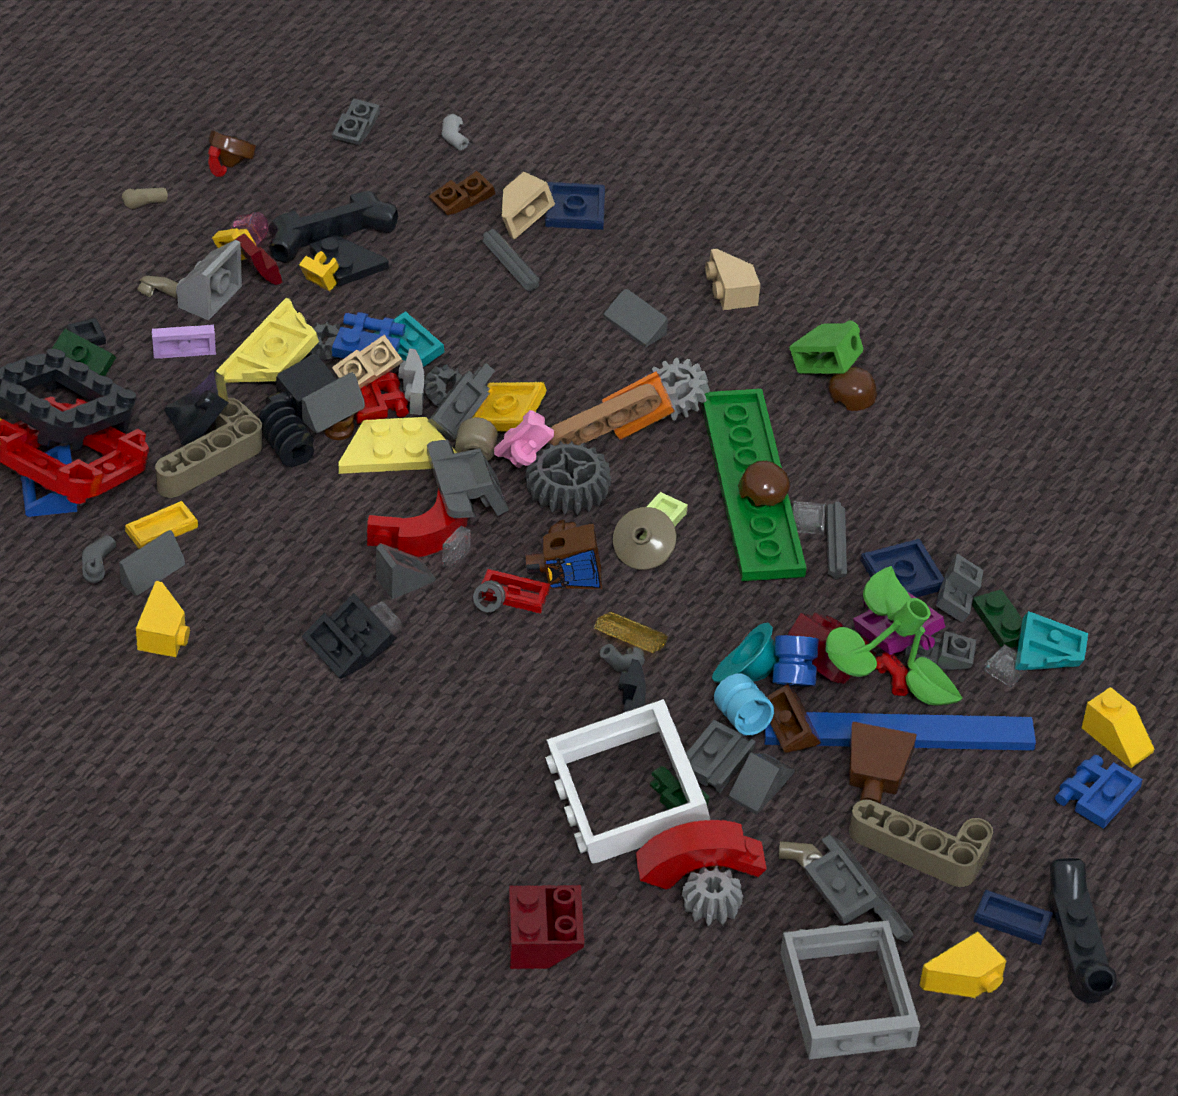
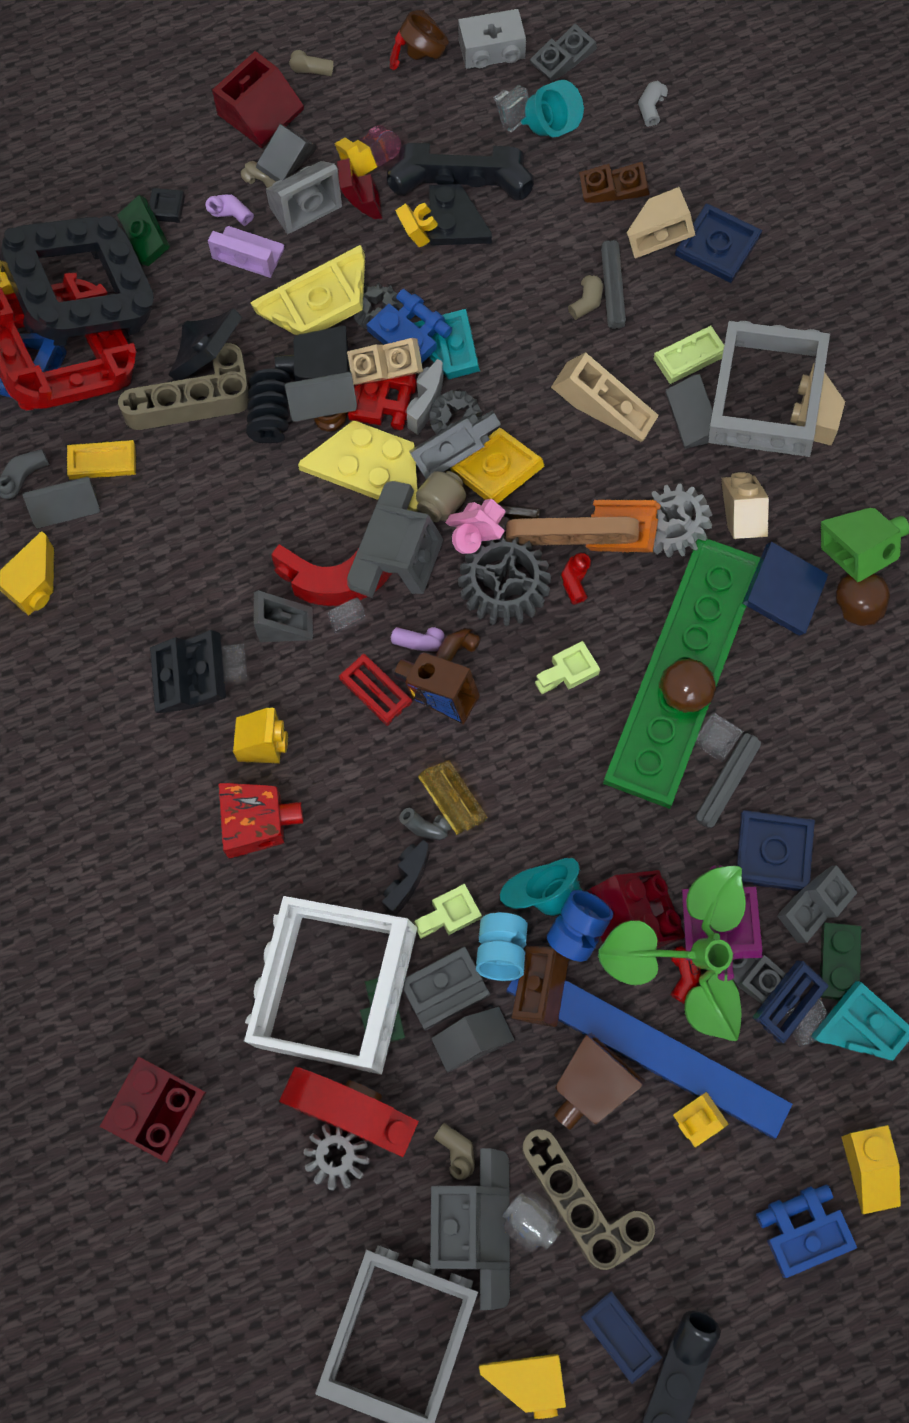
camera: 35 degrees right, 25 degrees up
(119, 232) = (256, 99): none -> dark red slope
(145, 315) = (229, 206): none -> lavender arm
(172, 258) = (285, 153): none -> dark grey slope
(291, 129) = (492, 39): none -> light grey brick
(343, 169) = (512, 107): none -> clear tile
(378, 160) = (554, 109): none -> teal piece
(447, 647) = (260, 737): none -> yellow slope
(479, 707) = (254, 817): none -> red torso
(485, 586) = (350, 685): dark grey bush -> none
(499, 274) = (591, 297): none -> dark tan arm
(525, 544) = (418, 641): none -> lavender arm
(556, 331) = (603, 397): none -> tan slope
(607, 283) = (689, 354): none -> yellowish green plate
(619, 457) = (573, 575): none -> red arm
(652, 550) = (546, 691): dark tan dish -> none
(687, 704) = (452, 910): none -> yellowish green plate
(697, 304) = (763, 434): none -> light grey window
(723, 360) = (745, 506): none -> tan slope
(791, 402) = (785, 588): none -> dark blue tile
(894, 867) = (531, 1221): none -> clear head
(972, 754) = (700, 1119): none -> yellow tile
(980, 666) = (779, 993): none -> dark blue tile

